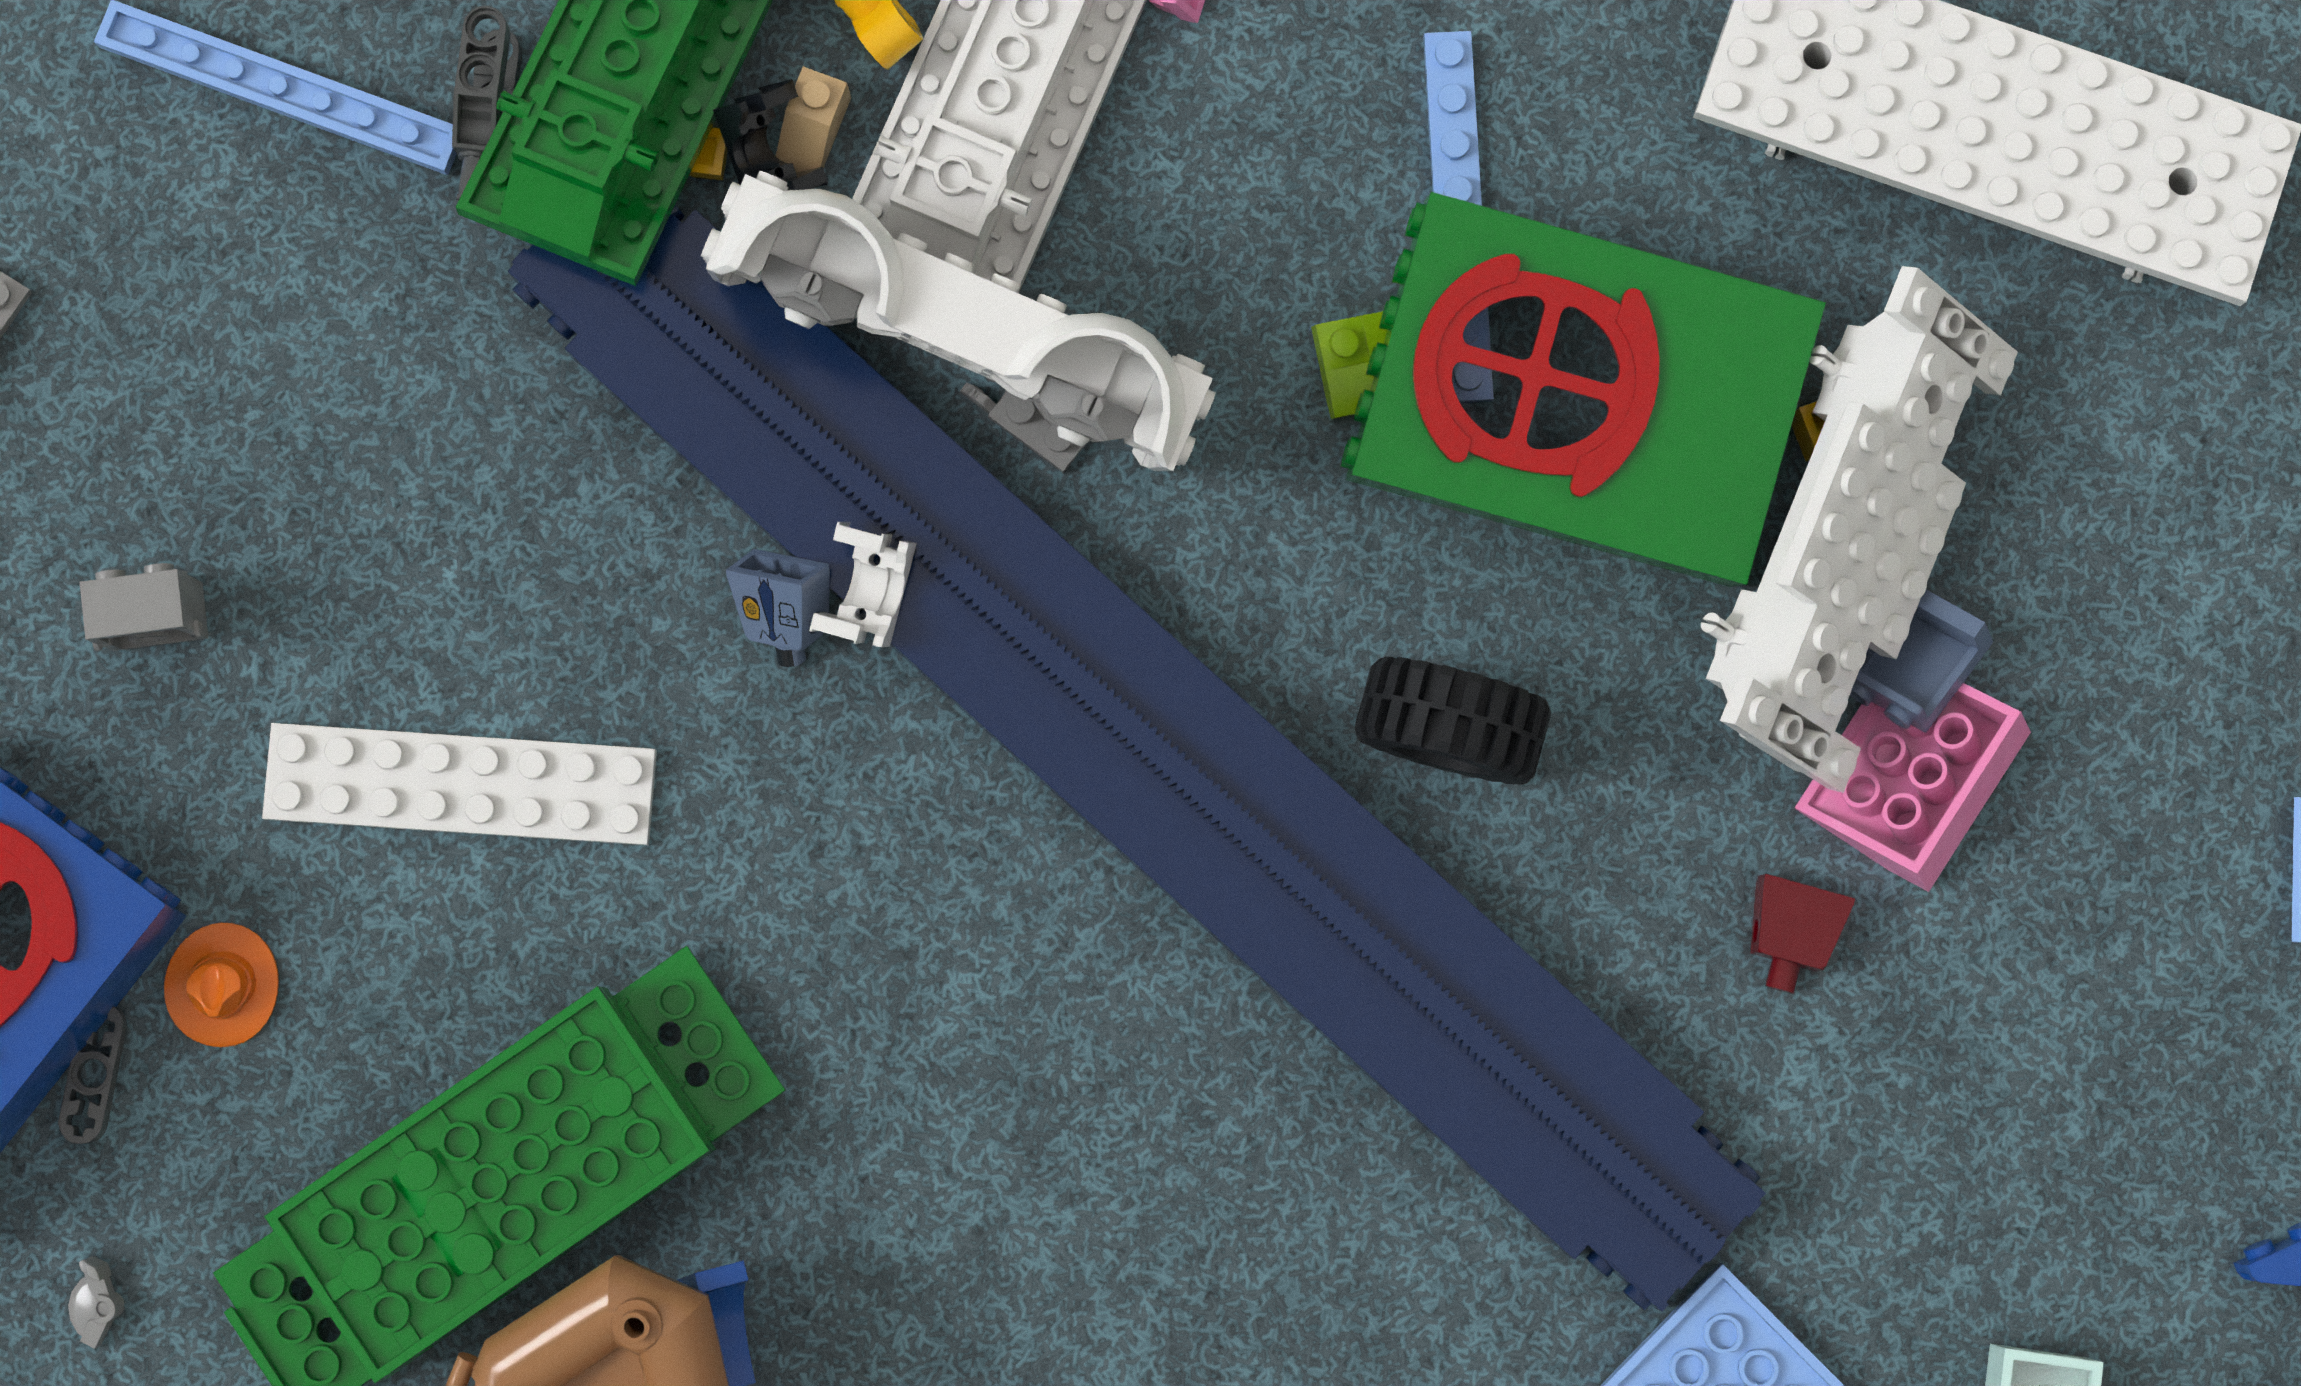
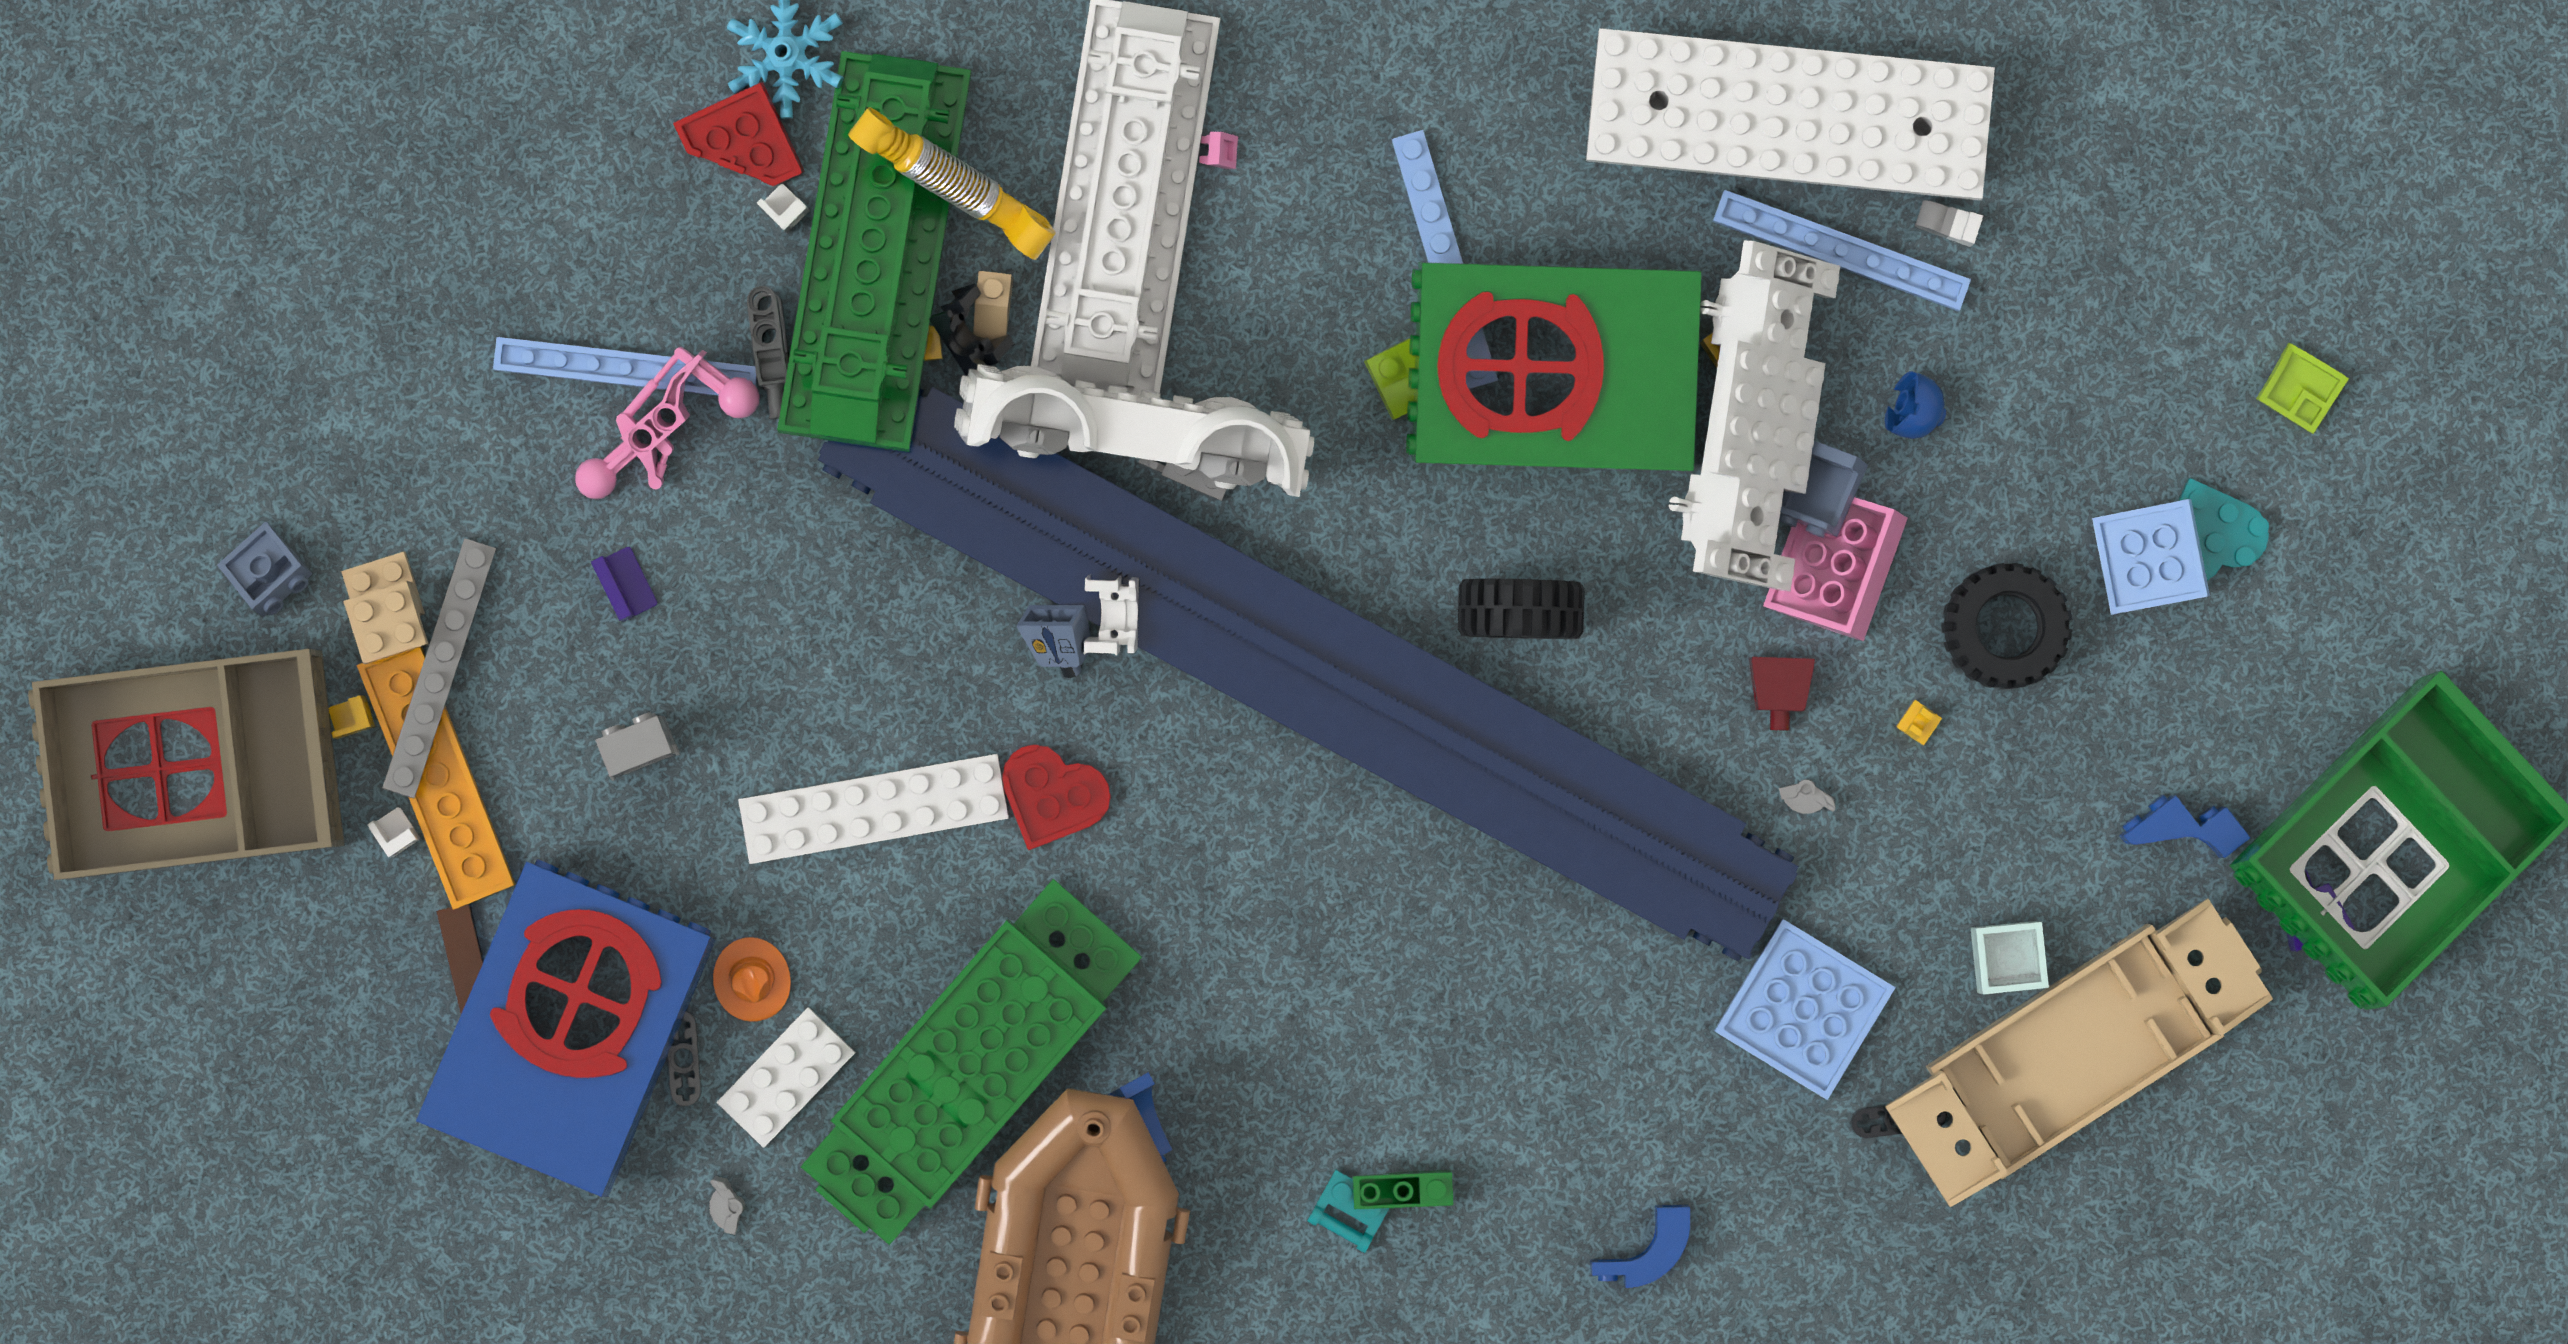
camera: 10 degrees left, 5 degrees up
(194, 383) = (624, 583): none -> dark purple panel
(231, 1138) = (786, 1077): none -> white plate
(417, 158) = (736, 397): none -> bright pink piece
(716, 829) = (1052, 796): none -> red plate
(1795, 1096) = (1806, 797): none -> light grey piece
(1980, 1028) = (1918, 722): none -> yellow tile
(2040, 348) = (1842, 250): none -> light blue plate
(2084, 575) = (1917, 407): none -> blue cylinder
(2180, 335) = (1949, 222): none -> leg
(2203, 907) = (2051, 619): none -> black tyre

